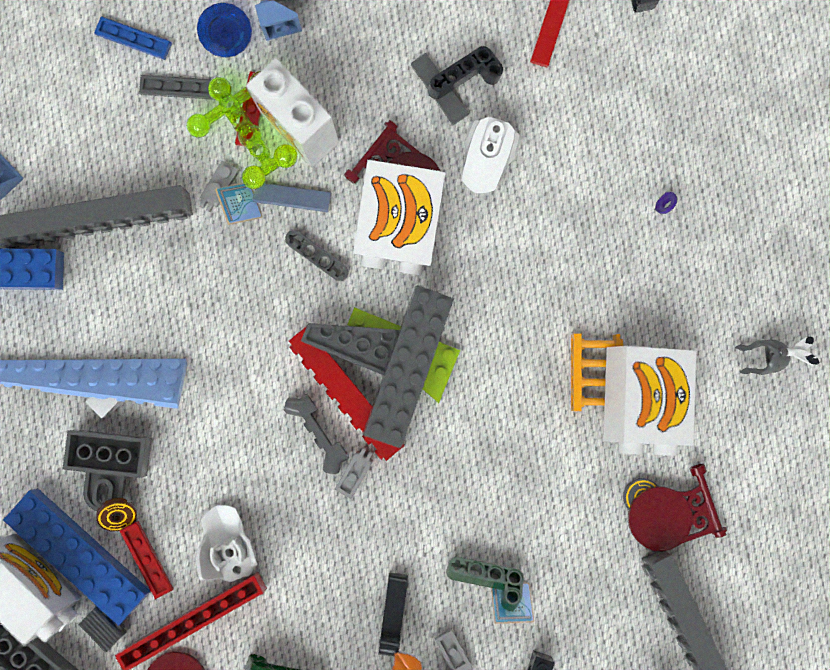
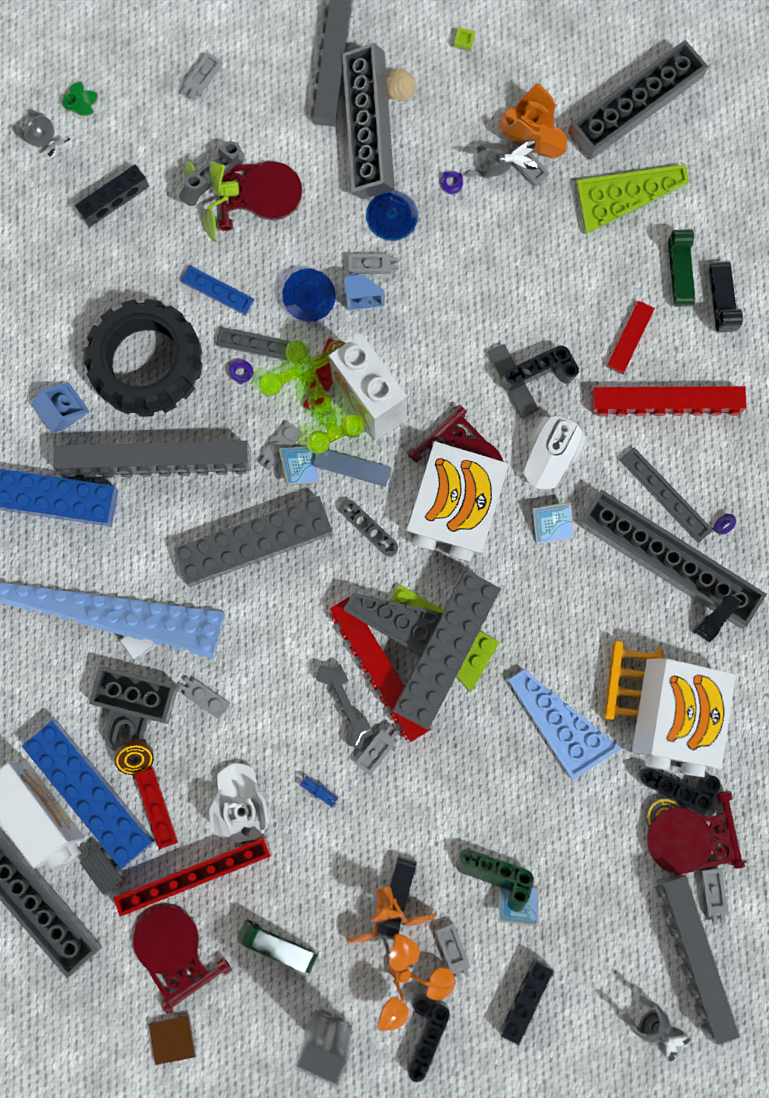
camera: 10 degrees right, 5 degrees down
(37, 87) = (118, 326): none -> black tyre
(168, 109) = (244, 365): none -> dark purple piece
(178, 445) = (204, 697): none -> light grey hinge
(203, 285) = (253, 541): none -> dark grey brick
(303, 520) = (319, 791): none -> blue pin
(381, 621) = (386, 902): none -> orange plant
(497, 225) = (553, 523): none -> piece
(539, 430) = (568, 733): none -> light blue wing
(595, 87) = (669, 400): none -> red brick
(604, 182) = (666, 495): none -> dark grey tile
(619, 245) = (670, 557): none -> dark grey brick
(650, 467) = (676, 786): none -> black beam
(670, 297) = (717, 618): none -> black piece
(700, 565) = (715, 894): none -> light grey hinge

